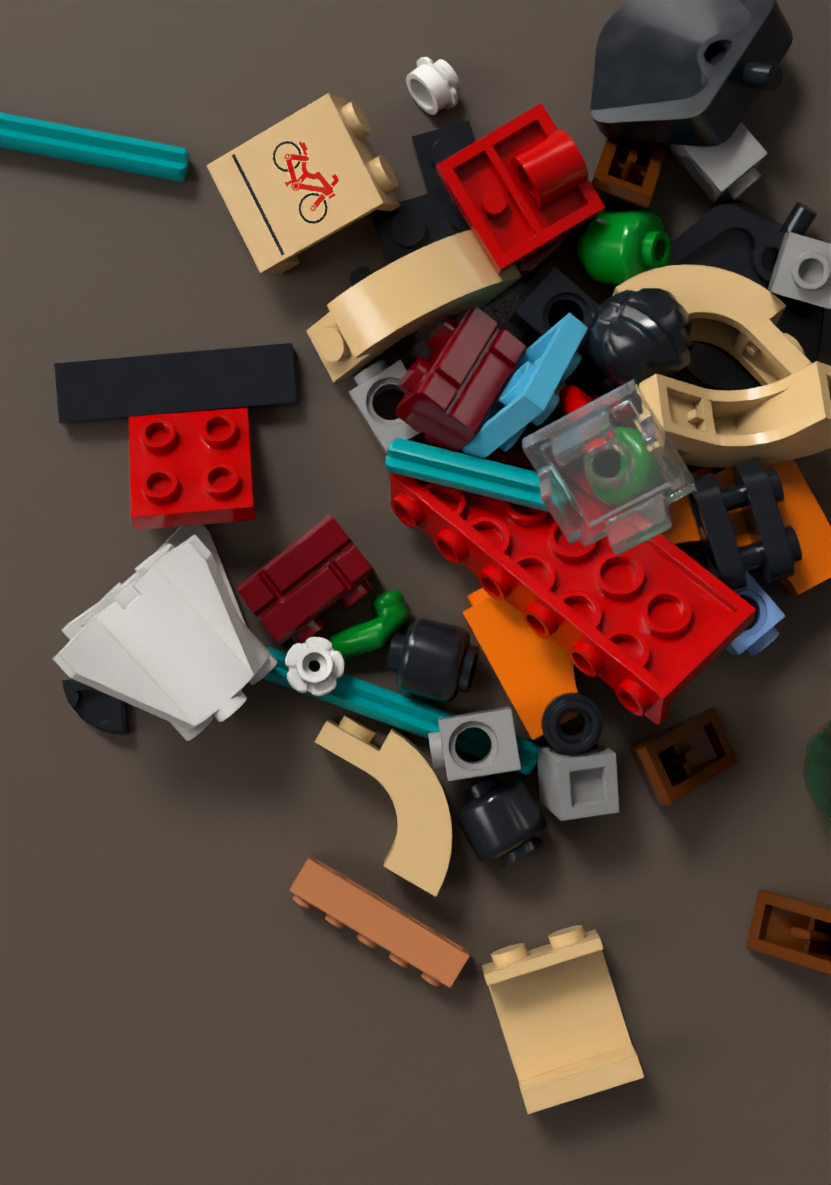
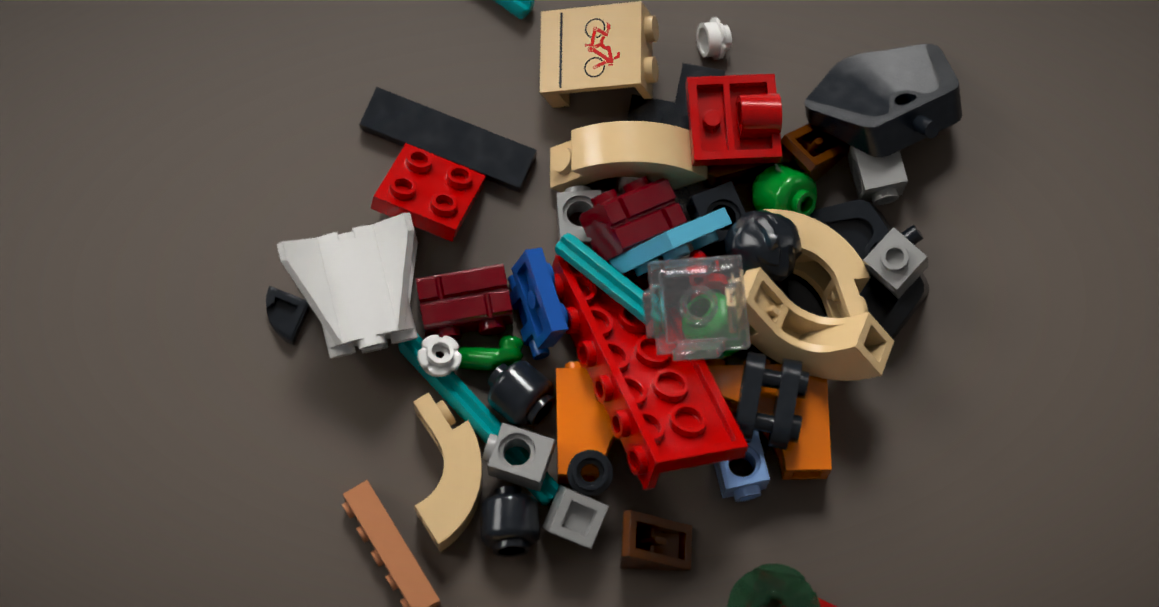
camera: 20 degrees right, 15 degrees down
(383, 527) = (537, 302): none -> blue plate

